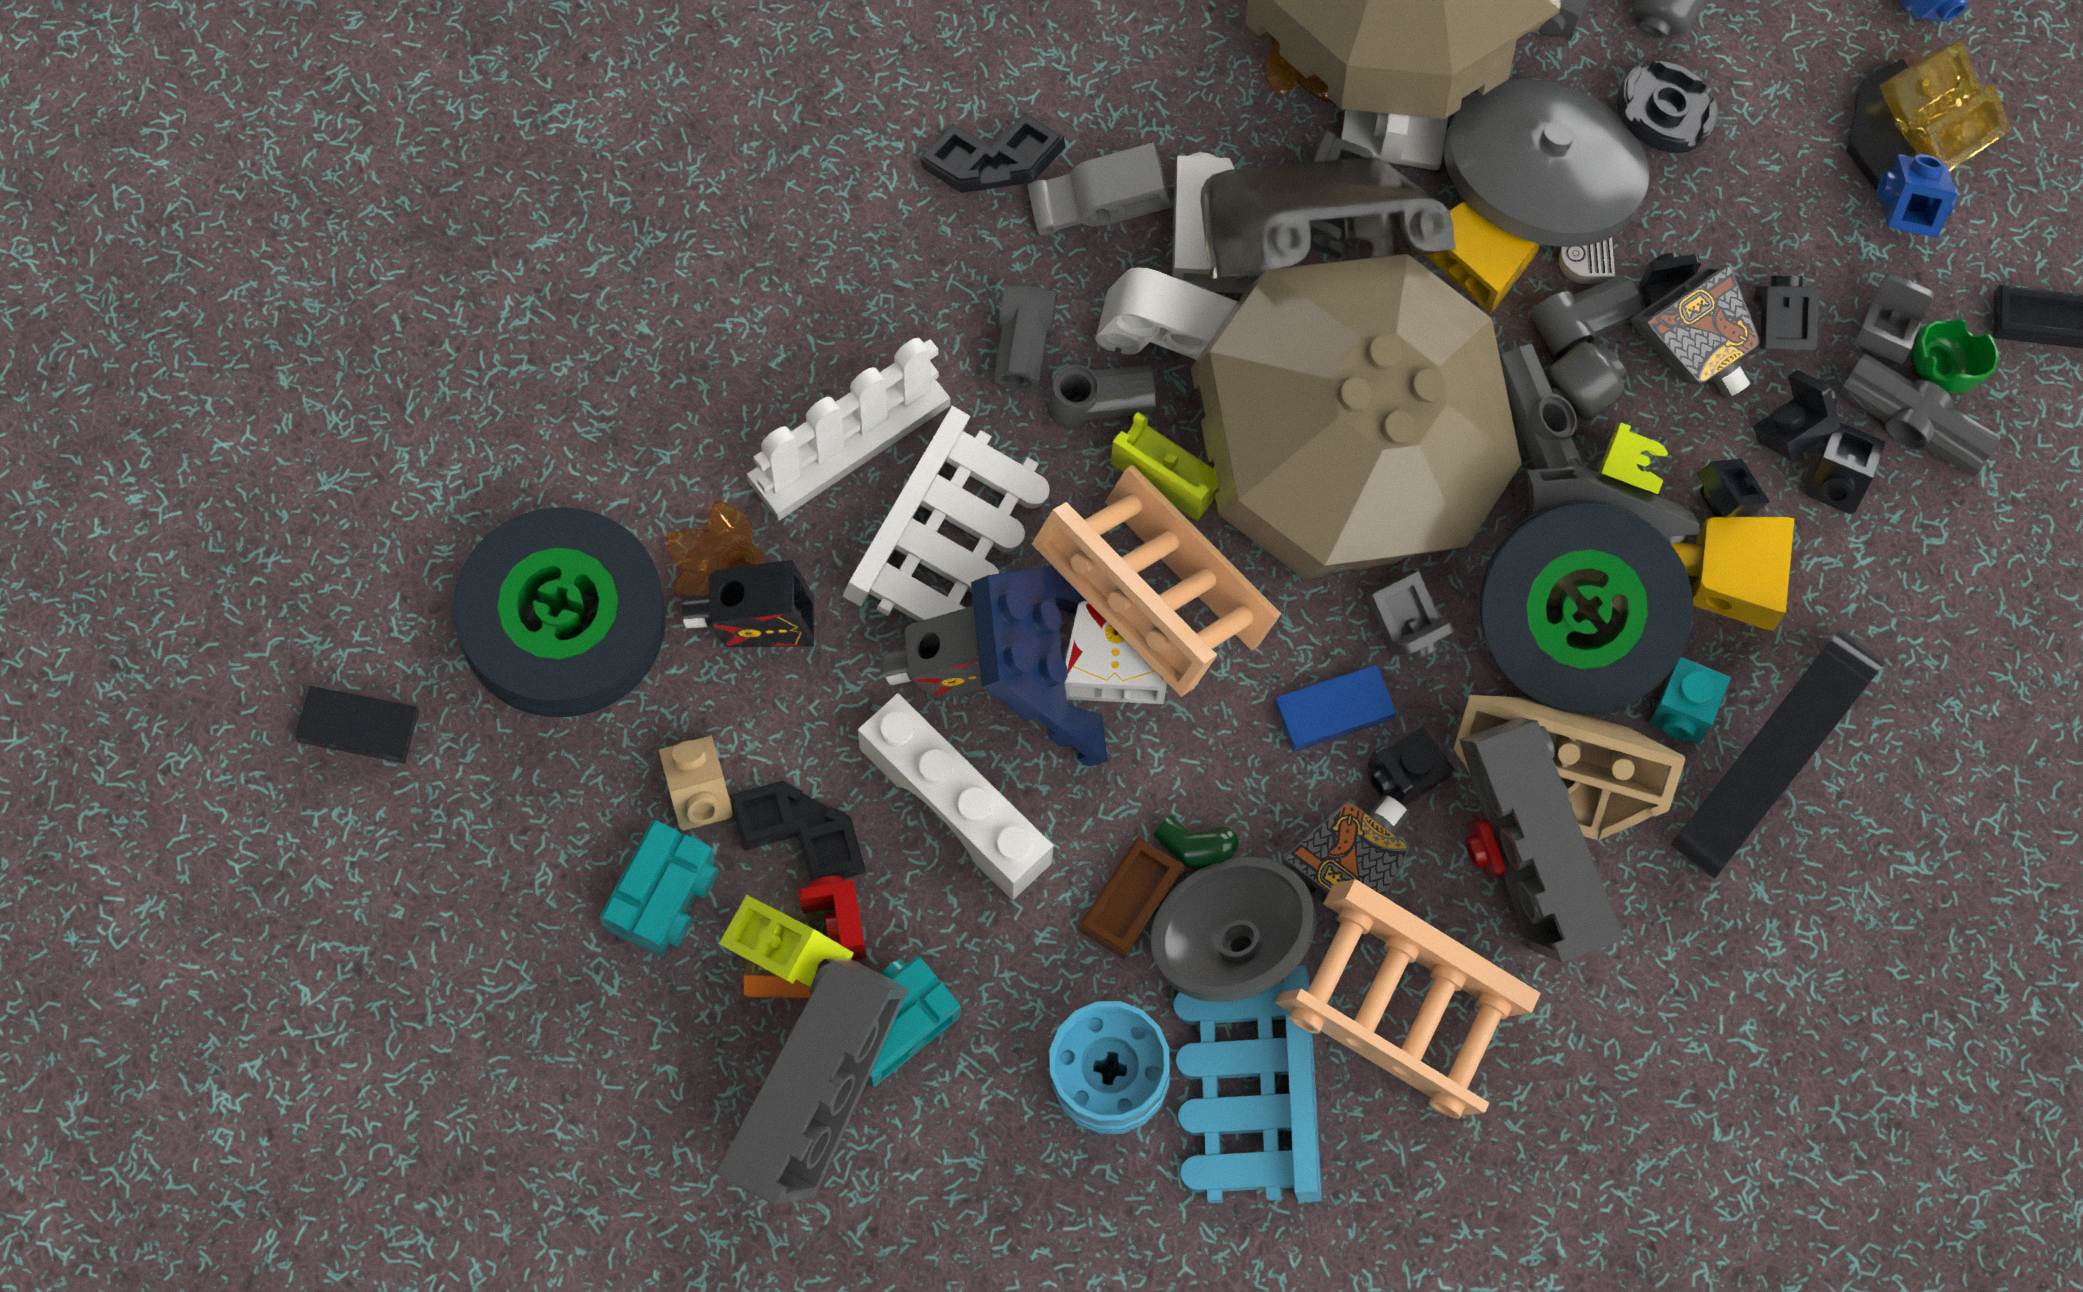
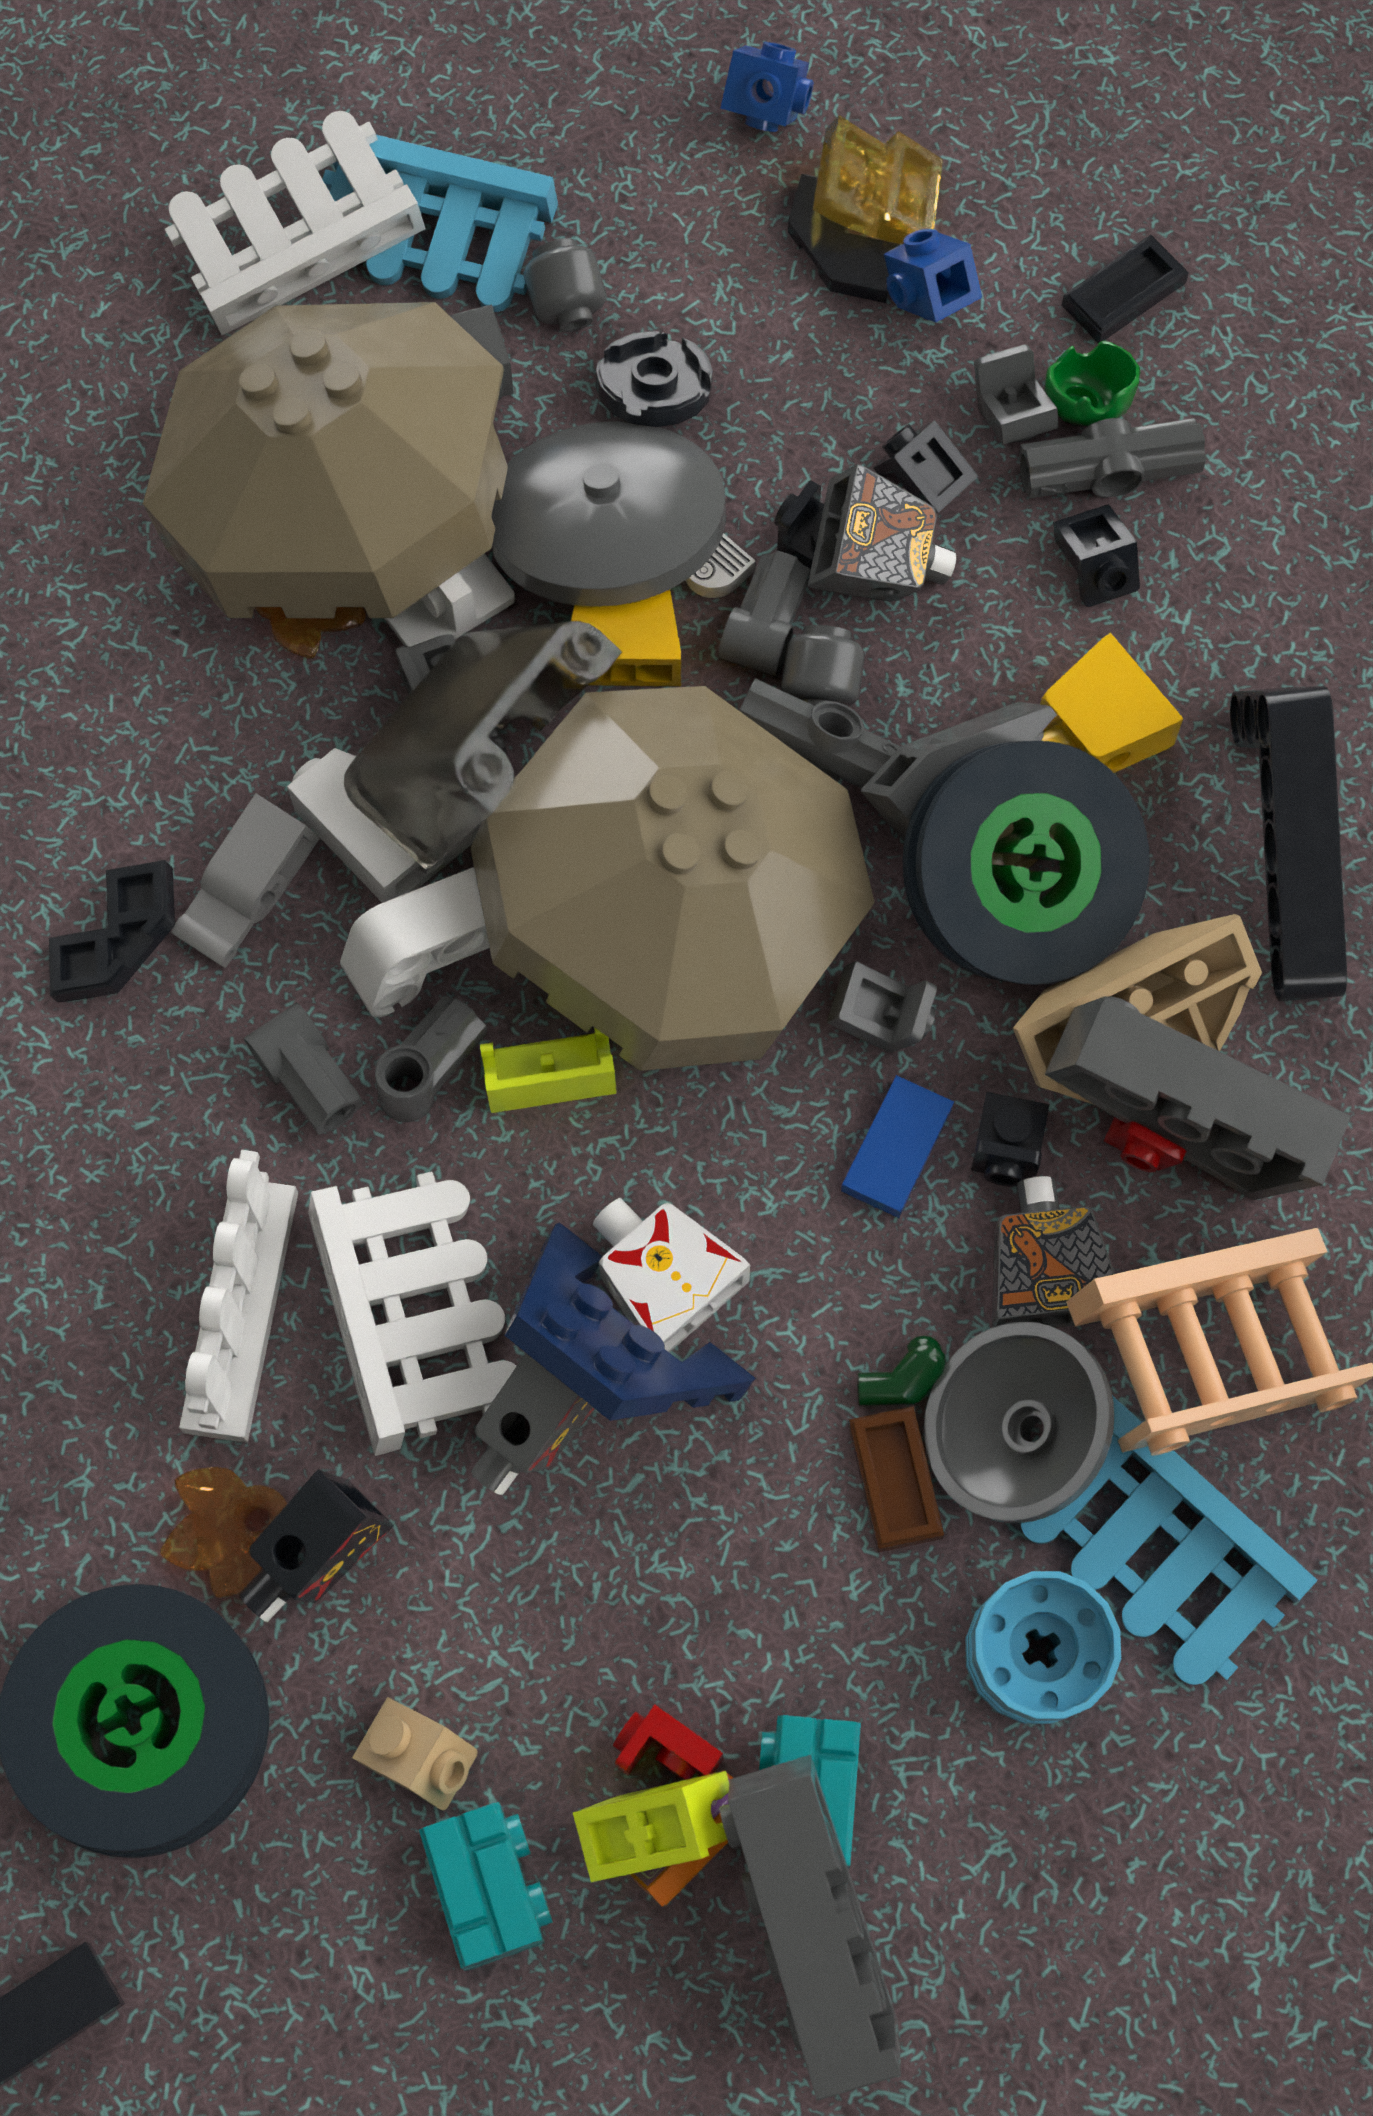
camera: 40 degrees left, 0 degrees up
(784, 812) = (522, 1700): black tile -> none
(976, 812) = (662, 1534): white arch -> none
(1130, 604) = (645, 1220): light nougat fence -> none
(1624, 455) = (926, 706): neon yellow hinge -> none
(1689, 701) = (1182, 865): teal brick -> none
(1731, 489) = (1034, 657): black bracket -> none
(1802, 420) = (1026, 545): black bracket -> none

